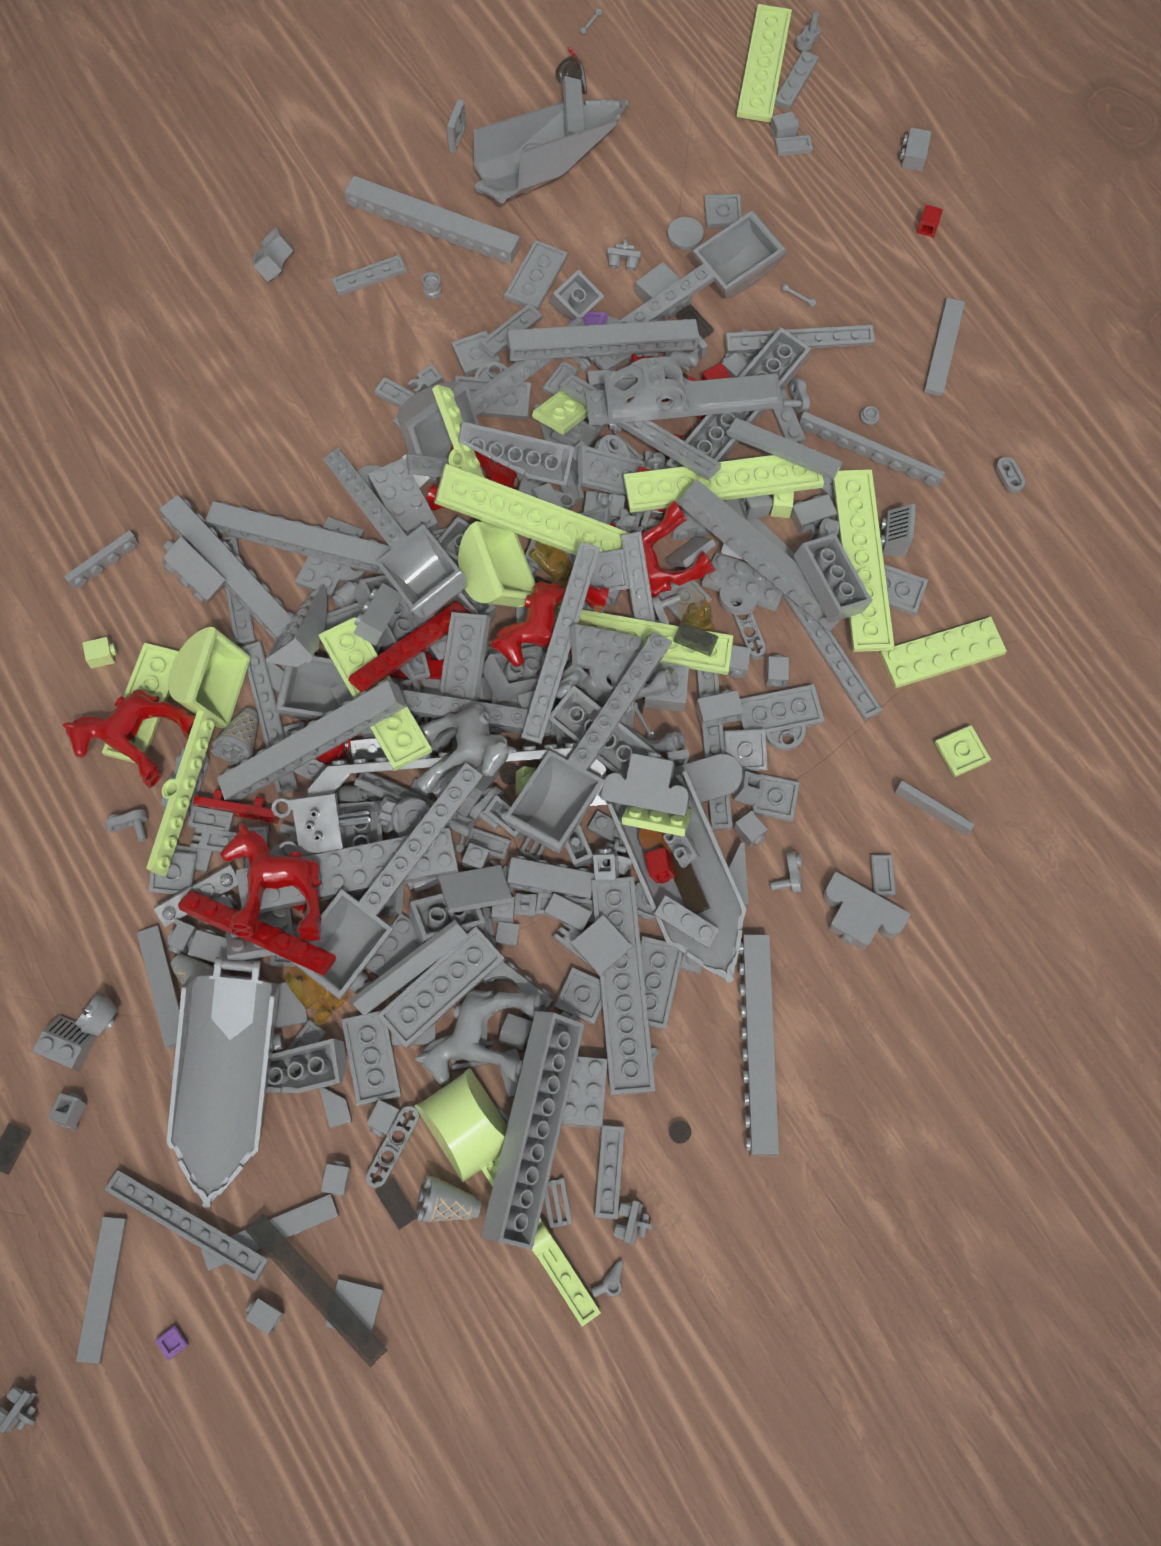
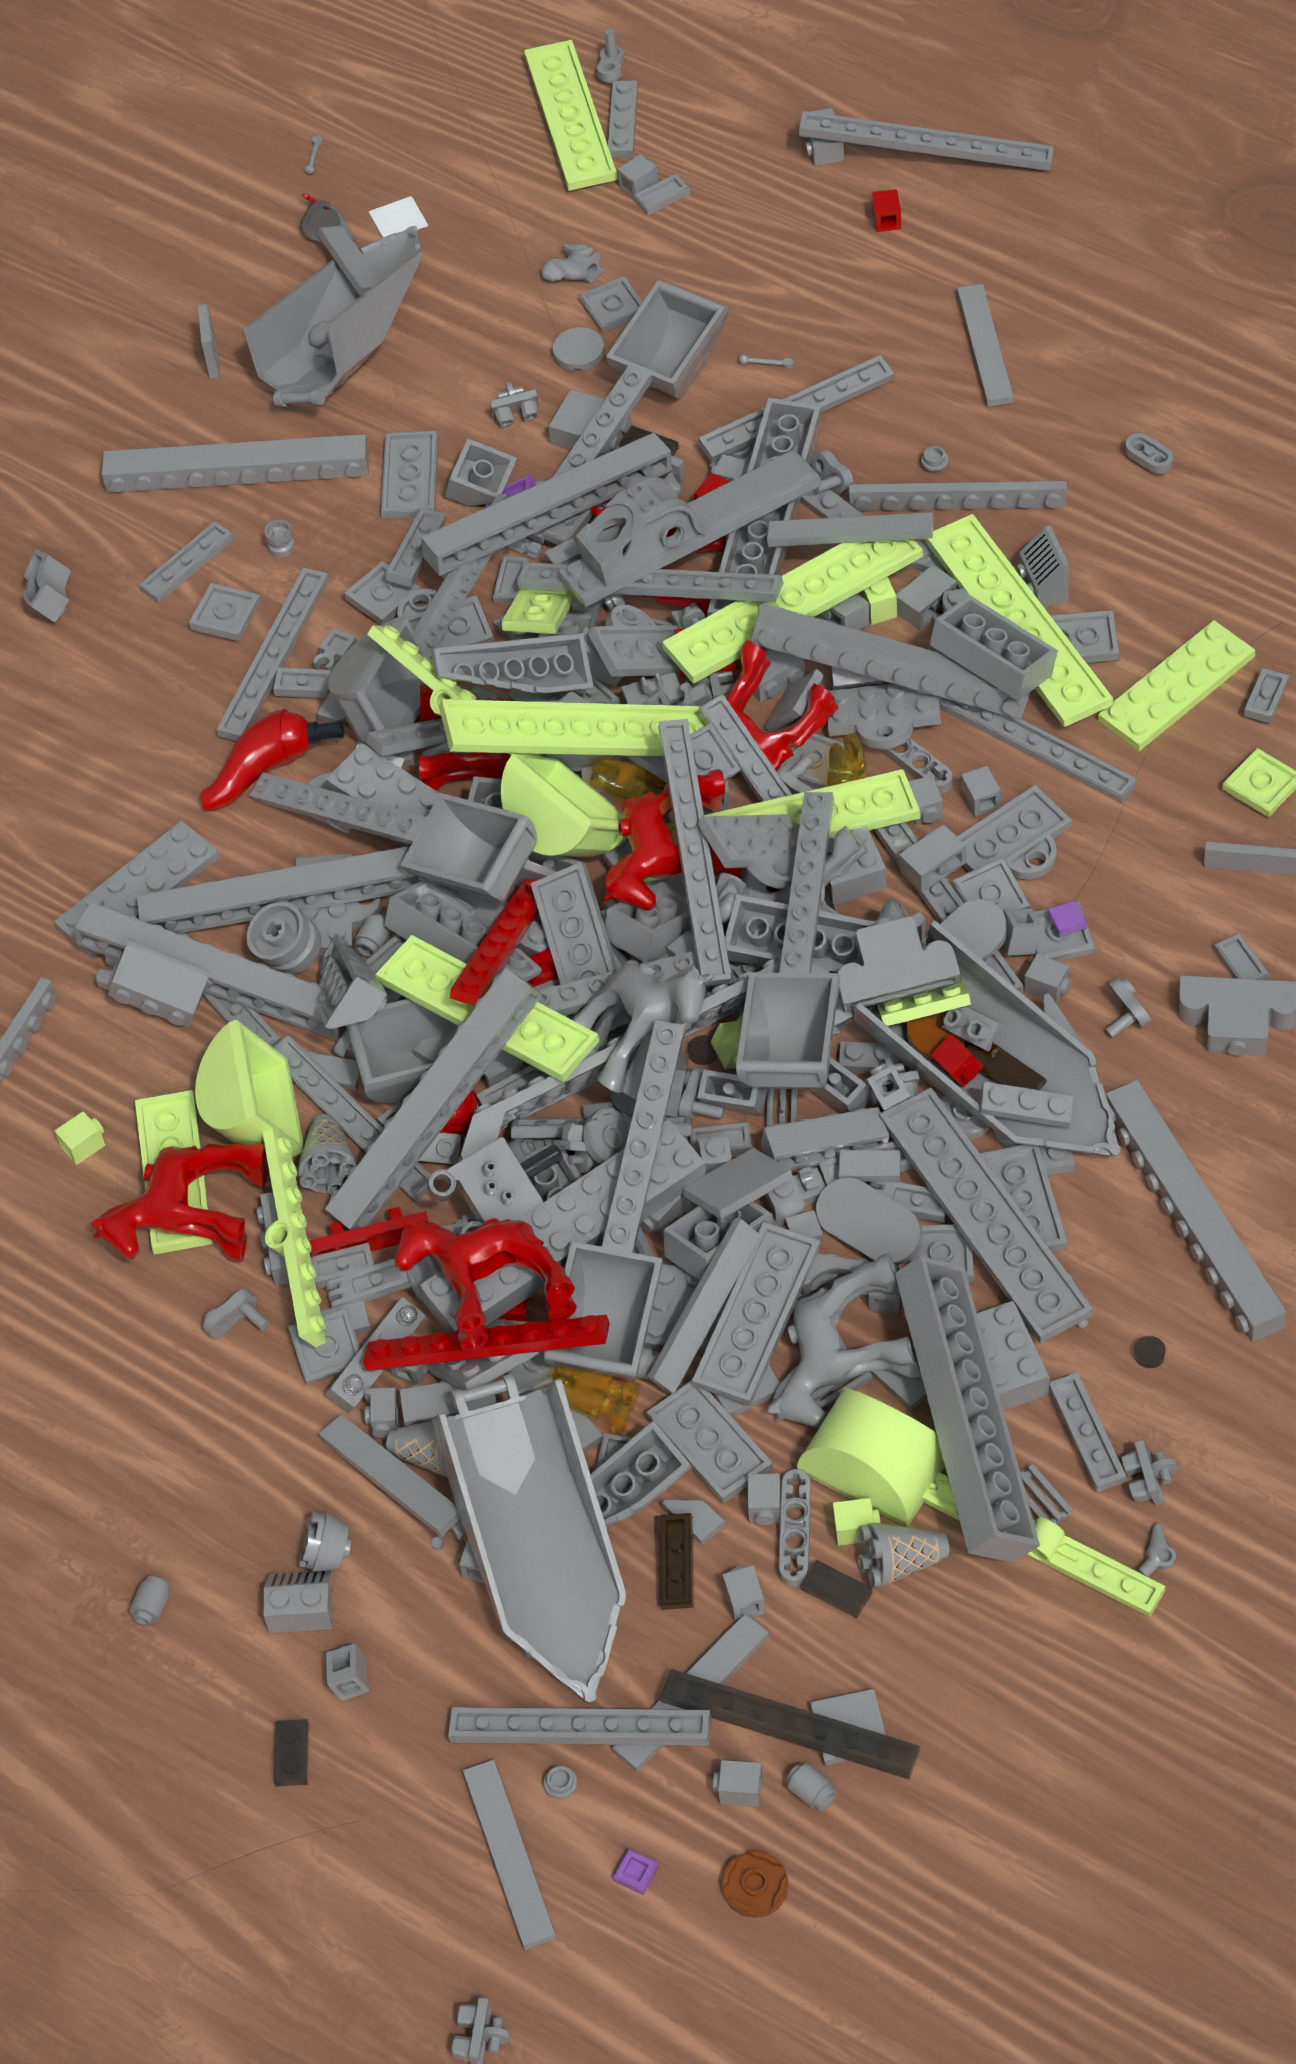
camera: 15 degrees left, 15 degrees down
(158, 1255) = (560, 1782): none -> light grey plate
(235, 487) = (162, 866): none -> light grey plate
(240, 1390) = (755, 1884): none -> dark orange tile
(288, 573) = (284, 938): none -> light grey wheel
(307, 1135) = (676, 1561): none -> dark brown tile
(307, 1341) = (811, 1786): none -> light grey brick
(345, 429) = (261, 747): none -> red animal
(373, 322) = (225, 612): none -> light grey plate
(377, 613) = (439, 918): light grey brick -> none
(387, 365) = (273, 653): none -> light grey plate
(431, 1163) = (851, 1515): none -> yellowish green brick
(515, 1032) = (879, 1324): light grey brick -> none
(548, 952) = (869, 1220): none -> light grey tile
(601, 945) = (934, 1177): light grey tile -> none
(621, 88) = (398, 217): none -> white sticker
(695, 639) = (859, 790): clear smoke plate -> none
(713, 174) = (577, 266): none -> light grey animal
(785, 792) = (1067, 918): none -> medium lavender tile
(979, 182) = (926, 140): none -> light grey plate
(997, 688) = (1266, 695): none -> light grey plate

